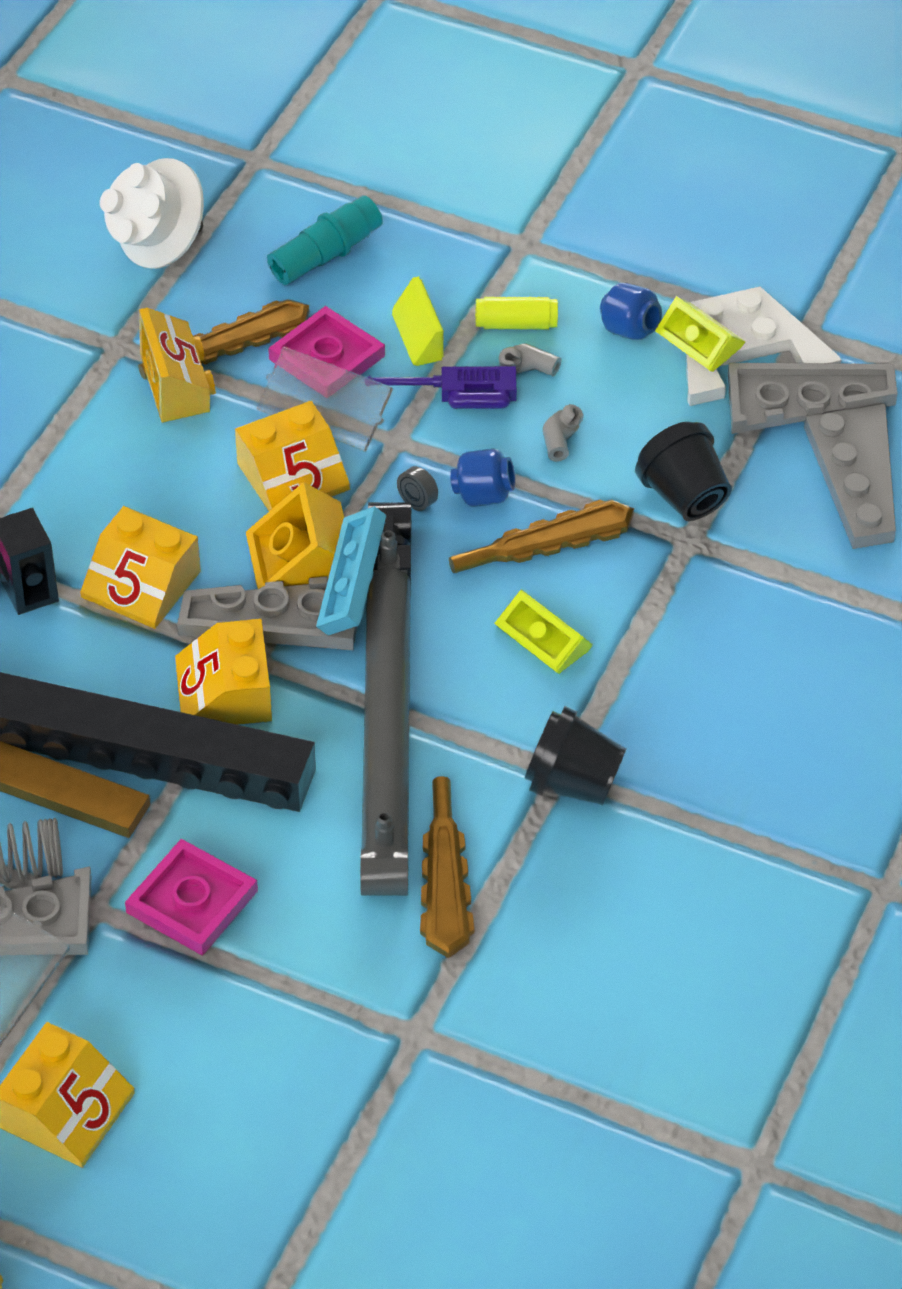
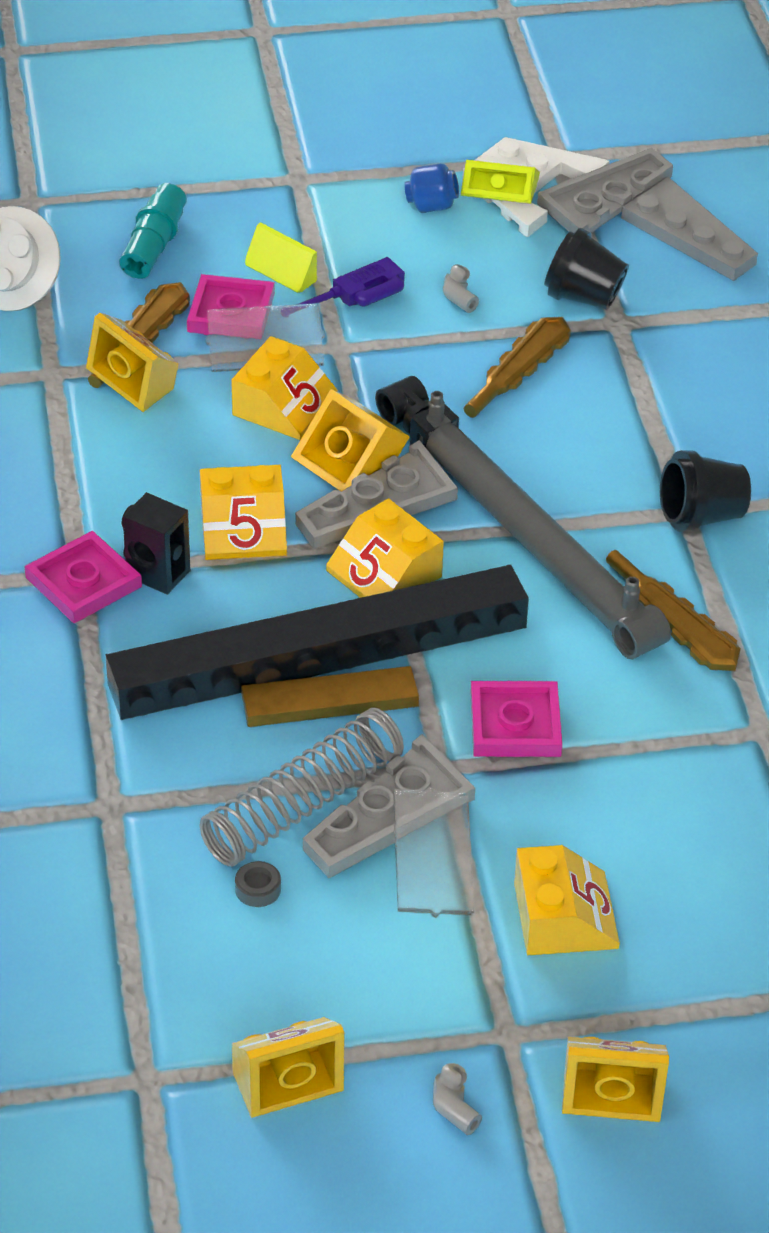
camera: 35 degrees left, 5 degrees down
(351, 571) = (424, 435): medium azure plate -> none
(417, 487) = (395, 366): dark grey tile -> none
(483, 477) = (439, 339): blue head -> none
(516, 313) = (346, 223): neon yellow piece -> none
(529, 358) = (388, 248): light grey arm -> none
(542, 632) = (581, 424): neon yellow slope -> none

